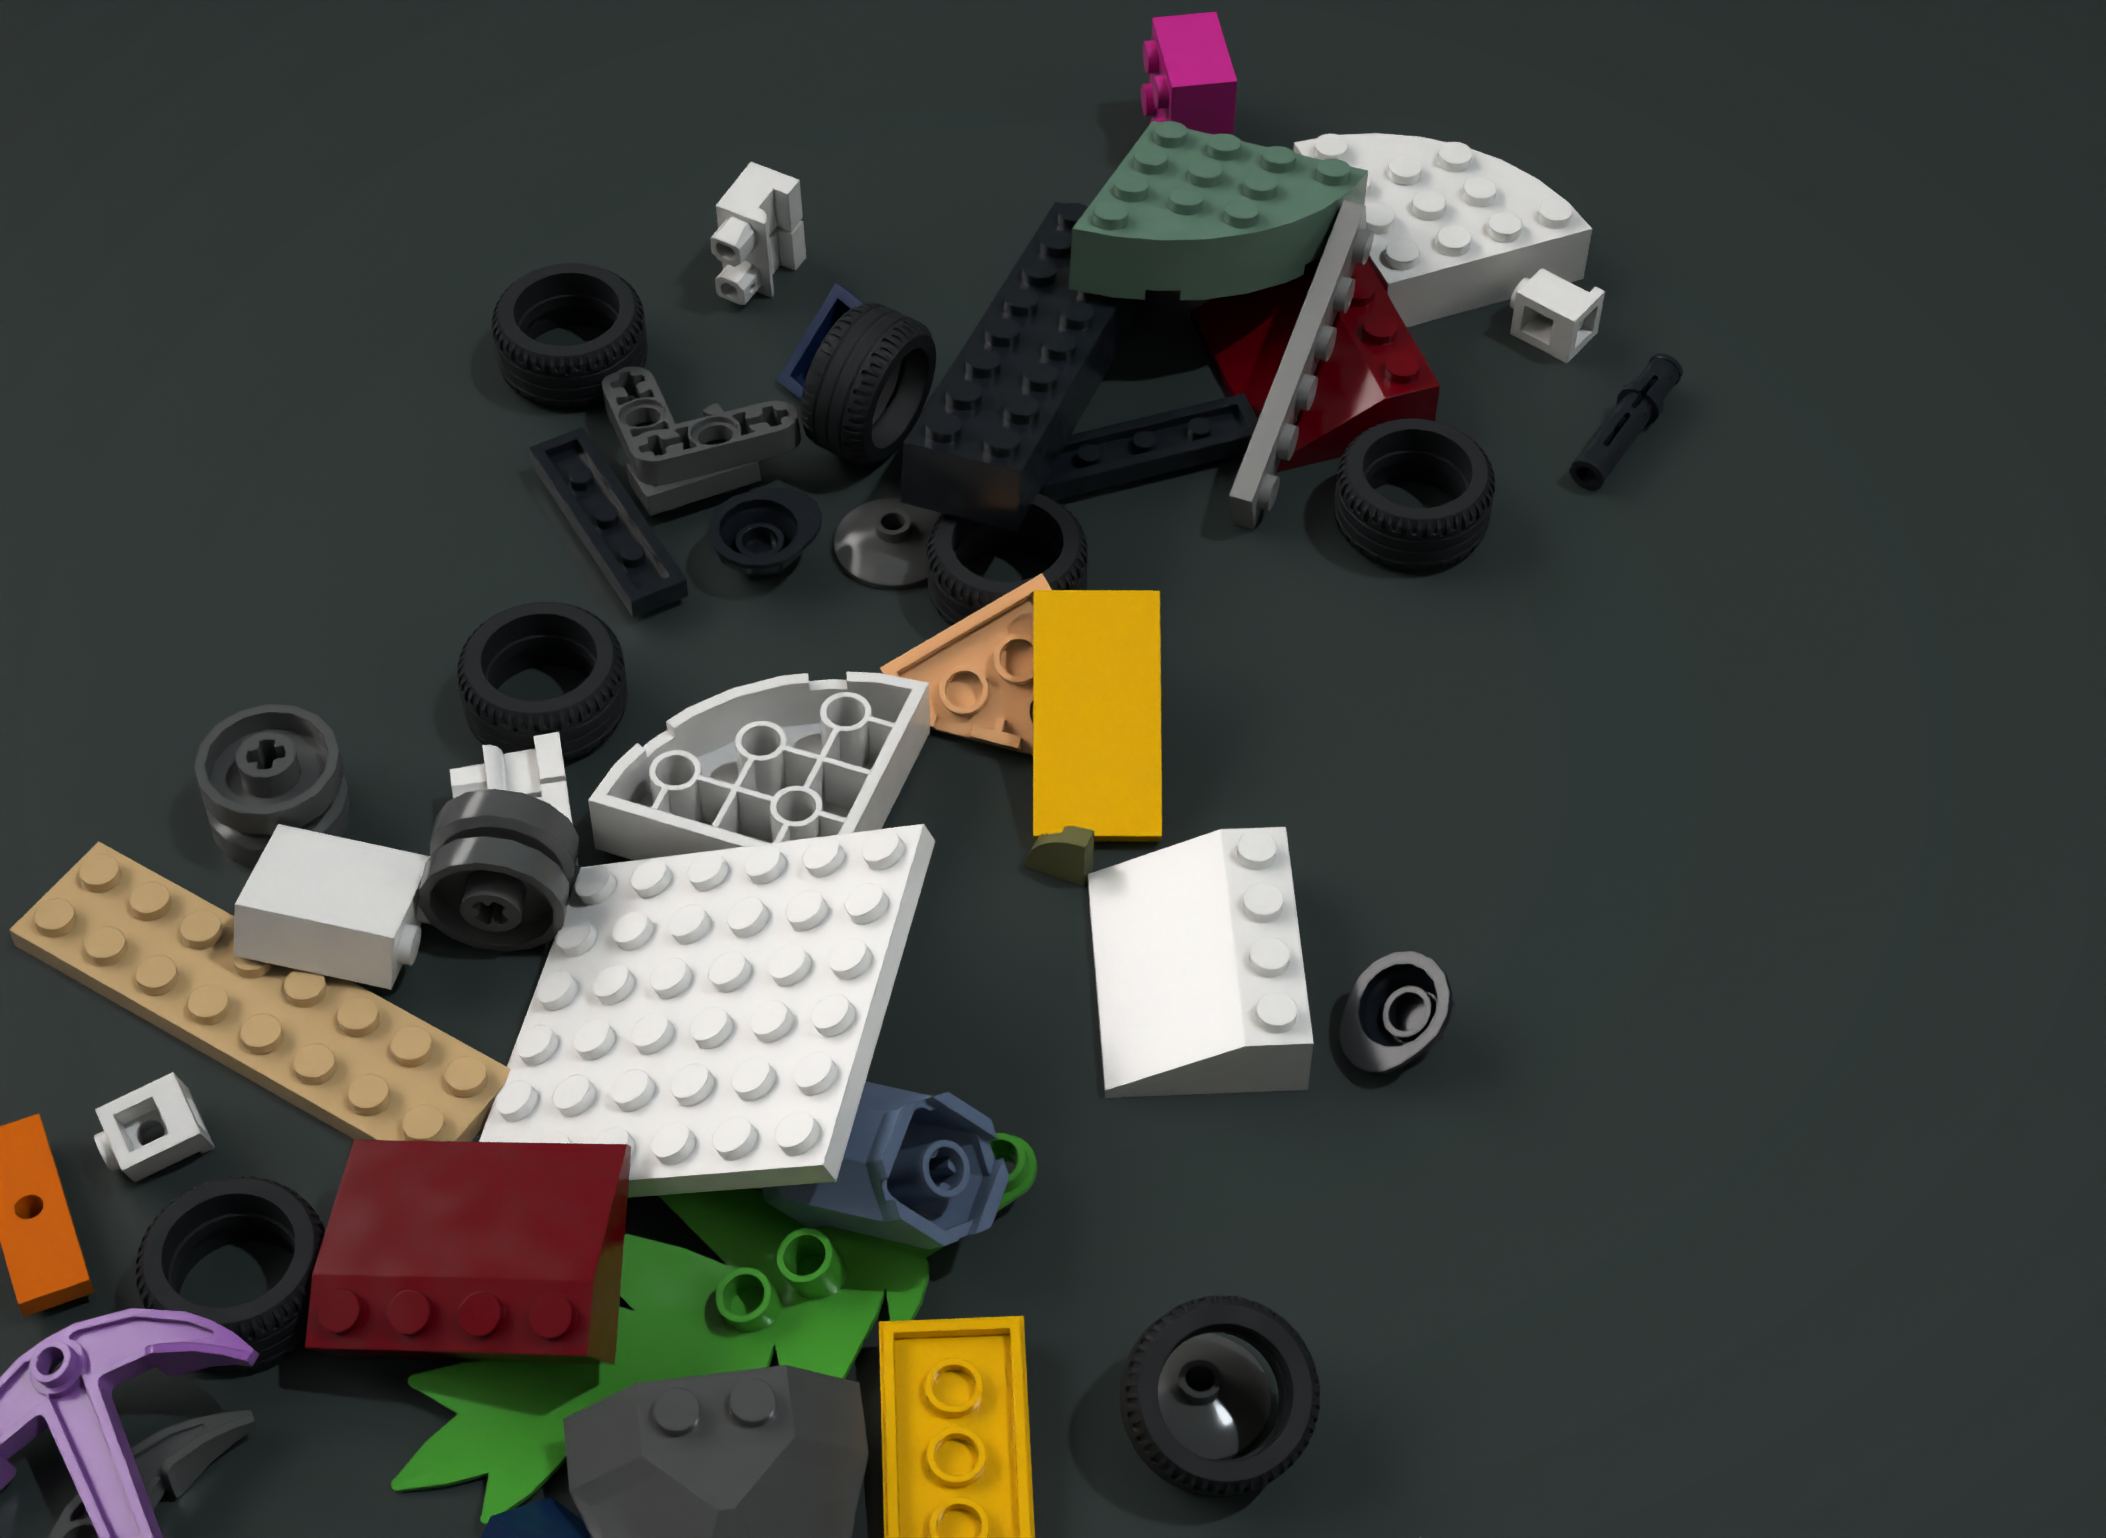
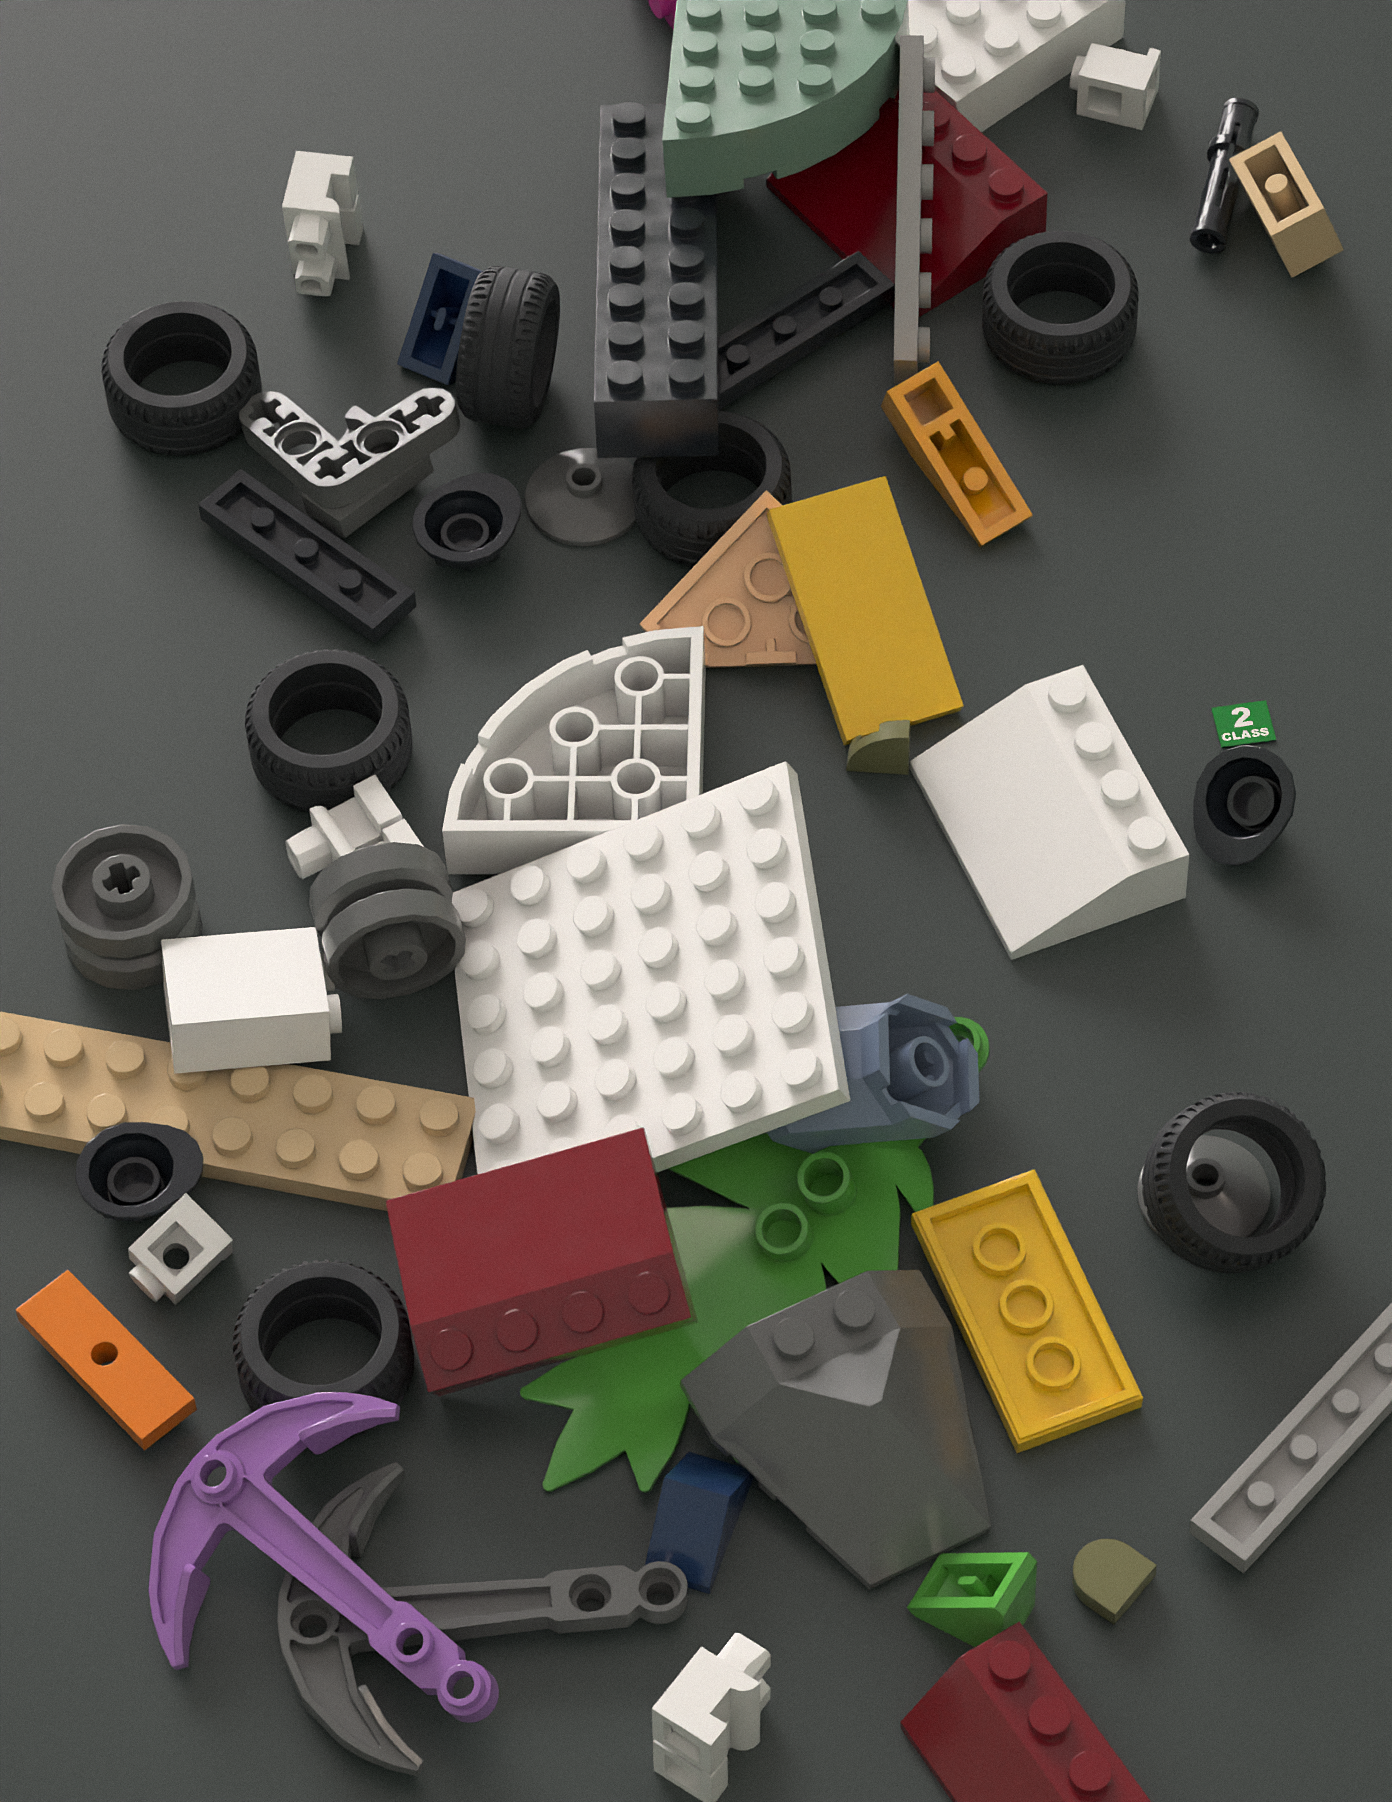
camera: 15 degrees left, 5 degrees up
(150, 1036) = (138, 1170): none -> black piece
(1254, 598) = (954, 454): none -> light orange slope
(1438, 936) = (1243, 723): none -> green sticker
(1672, 460) = (1286, 204): none -> tan brick

